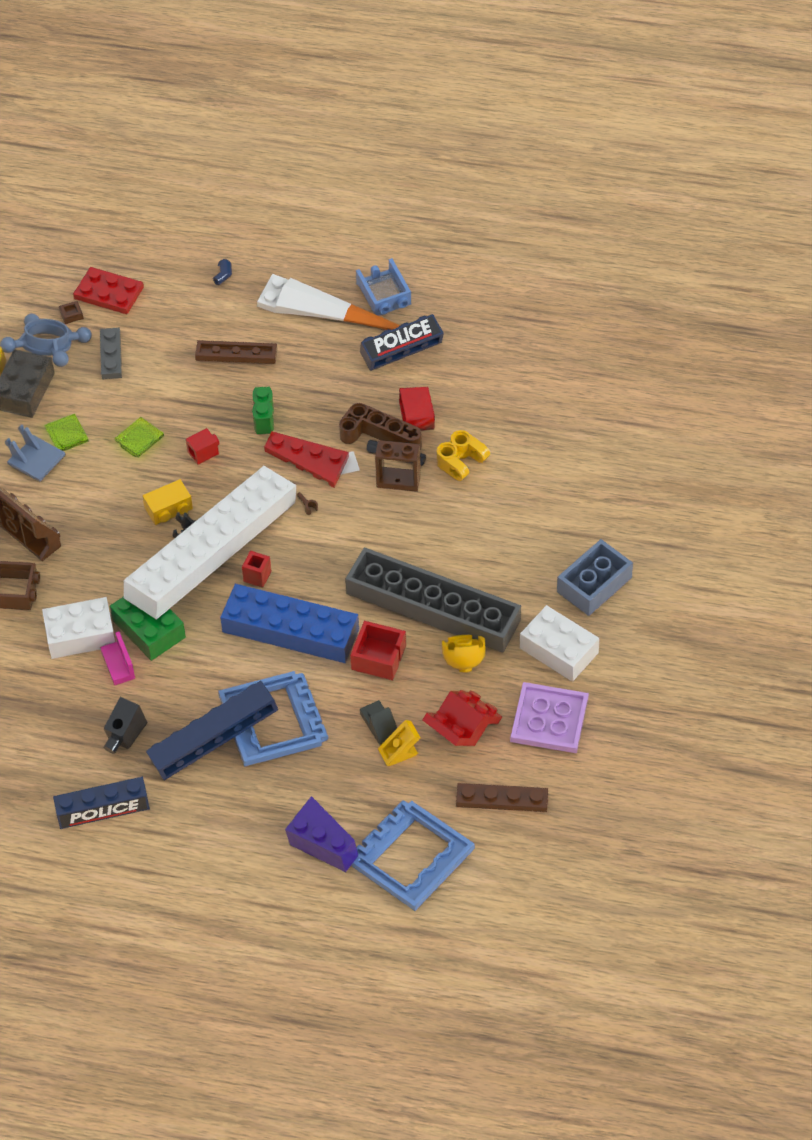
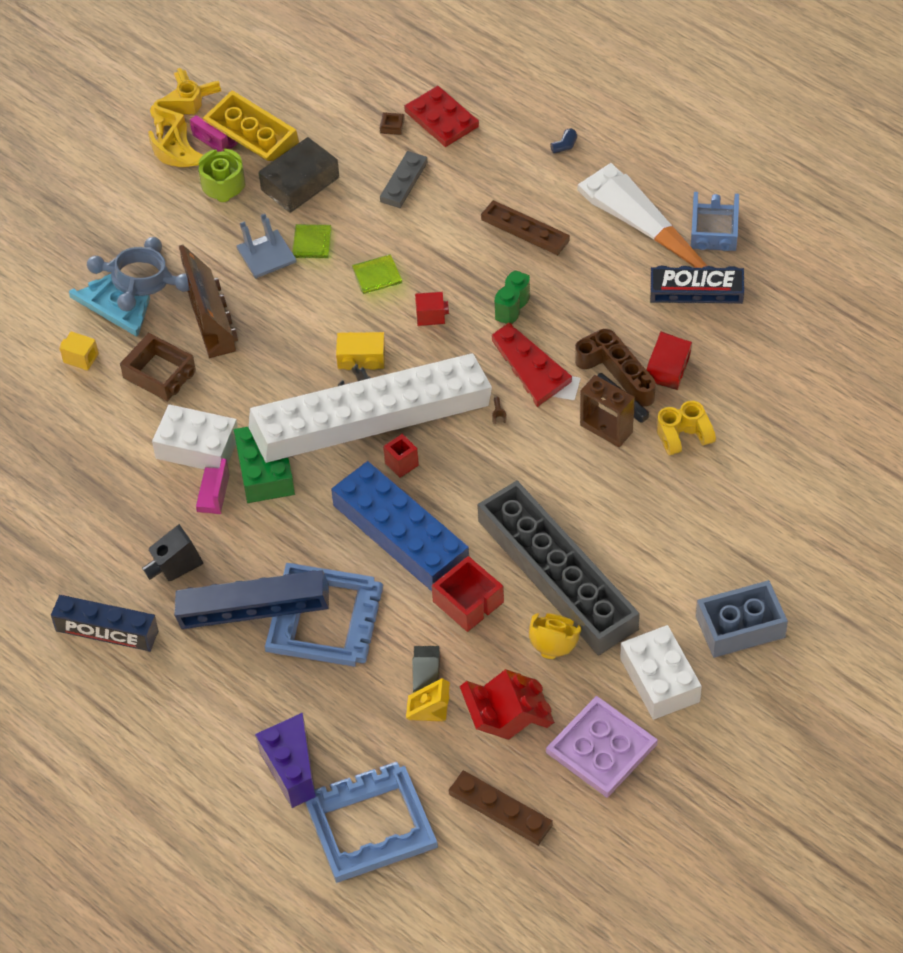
camera: 30 degrees right, 0 degrees up
(47, 347) = (343, 149): sand blue piece -> none

